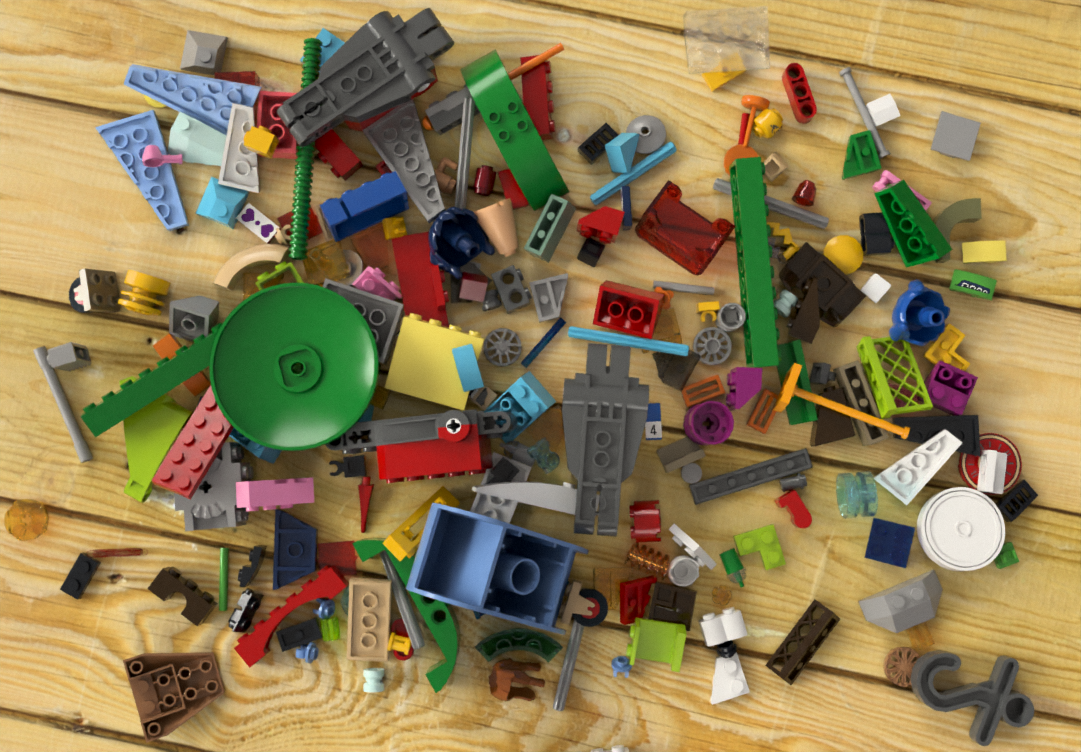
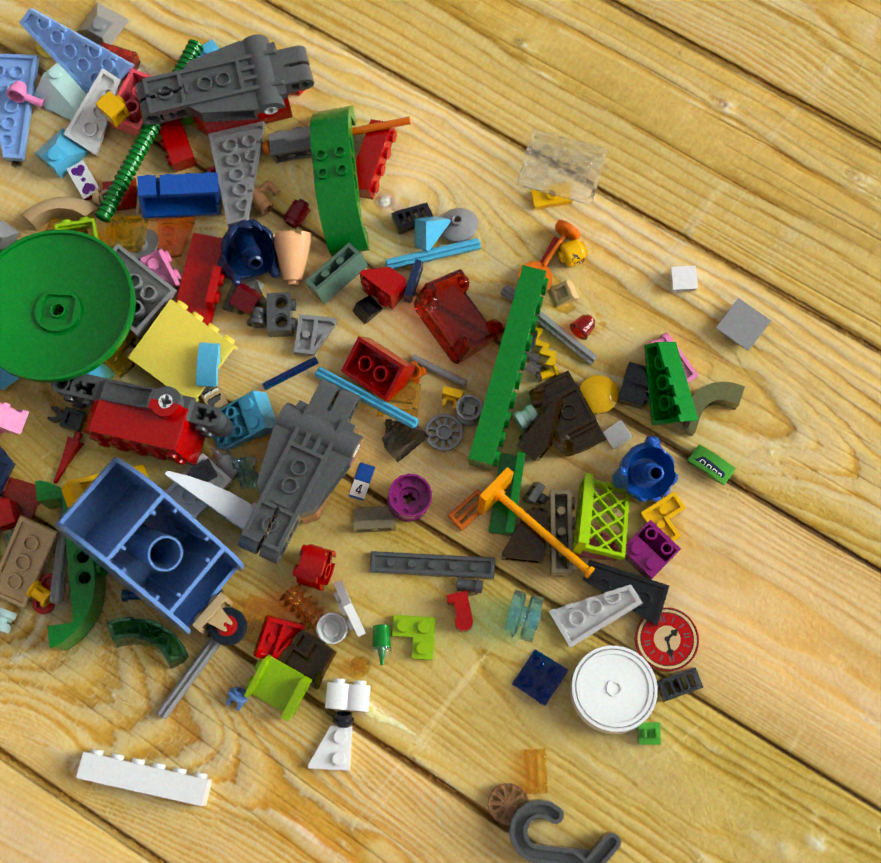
camera: 25 degrees right, 10 degrees down
(394, 227) = (200, 224): yellow tile -> none
(464, 152) = (287, 182): light grey axle -> none
(502, 347) = (252, 363): light grey wheel -> none
(510, 671) = (134, 660): dark orange piece -> none
(511, 189) = (318, 240): red tile -> none
(686, 396) = (420, 470): orange tile -> none
(691, 473) = (377, 541): light grey tile -> none
(743, 384) = (456, 476): magenta slope -> none
(801, 84) = (611, 228): red beam -> none
(809, 645) = (422, 744): dark brown fence -> none
(860, 156) = (648, 311): green wing -> none
(864, 112) = (670, 317): light grey bar -> none
(904, 603) = (533, 742): light grey wedge -> none
(984, 251) = (733, 438): light yellow slope -> none
(992, 471) = (665, 646): white panel -> none

